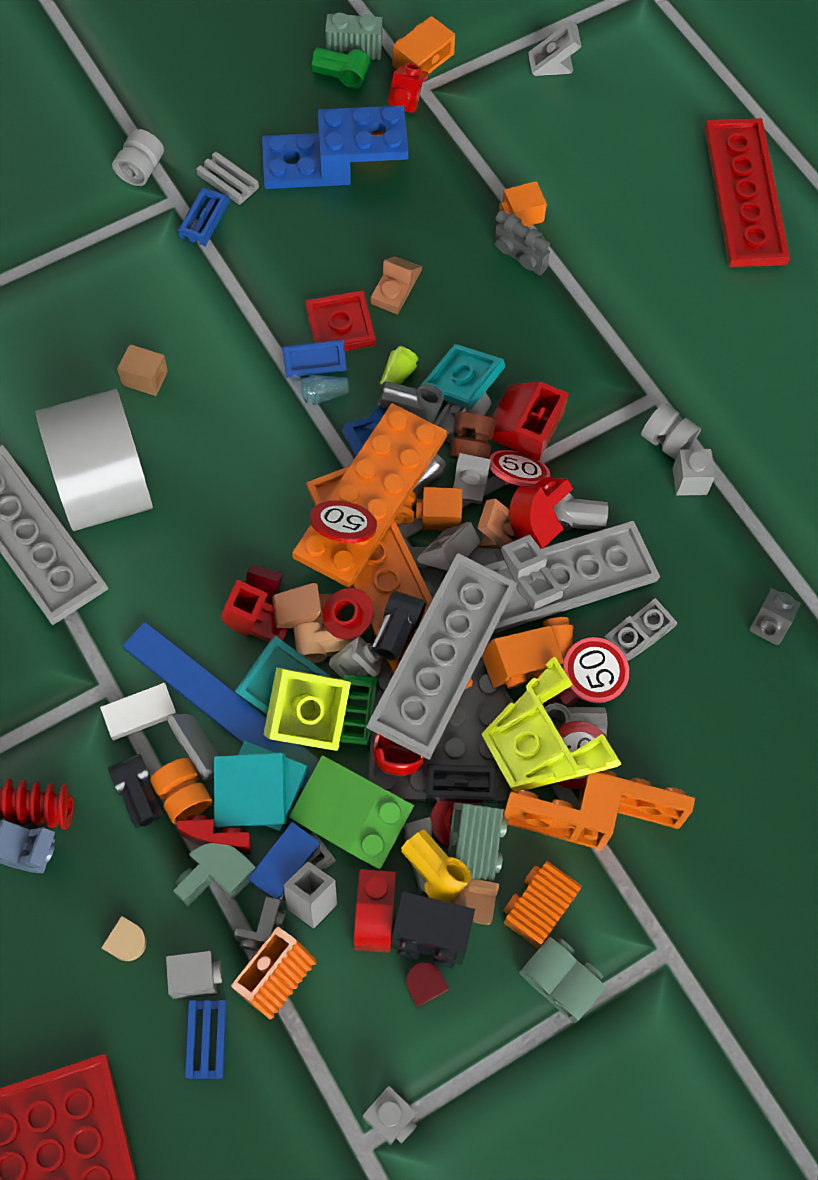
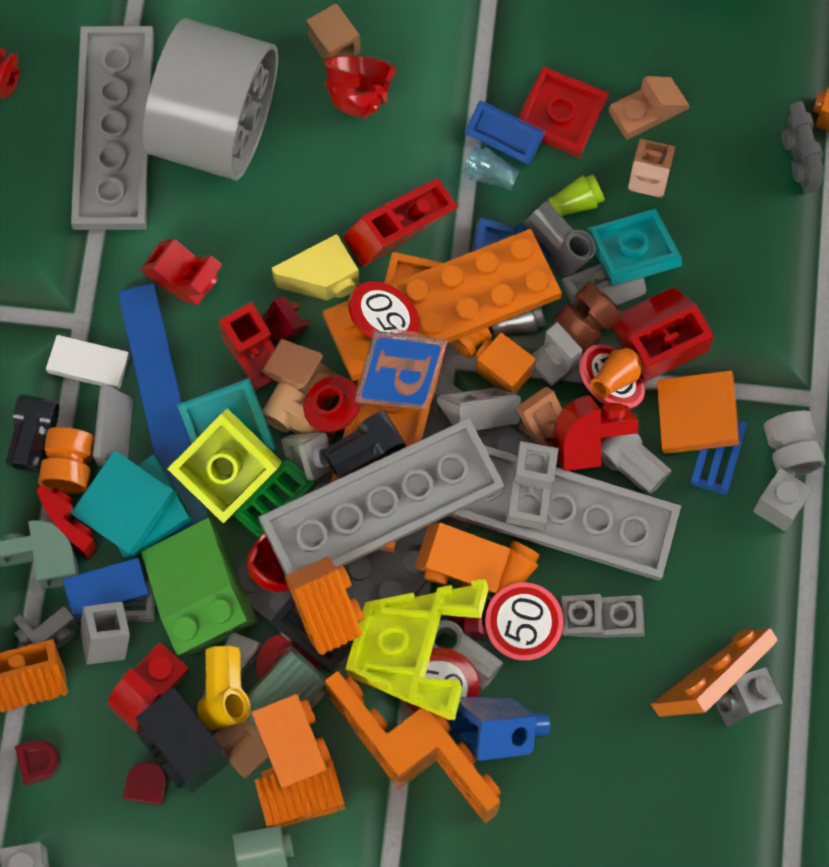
camera: 40 degrees right, 5 degrees up
(161, 600) = (181, 271): none -> red brick
(188, 389) = (358, 83): none -> red helmet
(261, 533) = (319, 271): none -> light yellow slope
(290, 464) = (398, 222): none -> red slope
(330, 1029) = (37, 761): none -> dark red tile
(385, 551) = (400, 369): none -> piece
(431, 319) = (651, 168): none -> nougat slope
(463, 752) = (325, 605): none -> orange brick
(515, 867) = (290, 740): none -> orange brick
(524, 458) = (618, 371): none -> orange cone
(592, 453) = (698, 412): none -> orange tile
(616, 451) = (710, 484): none -> blue tile
(645, 751) = (497, 727): none -> blue torso
(750, 615) = (717, 675): none -> orange wing

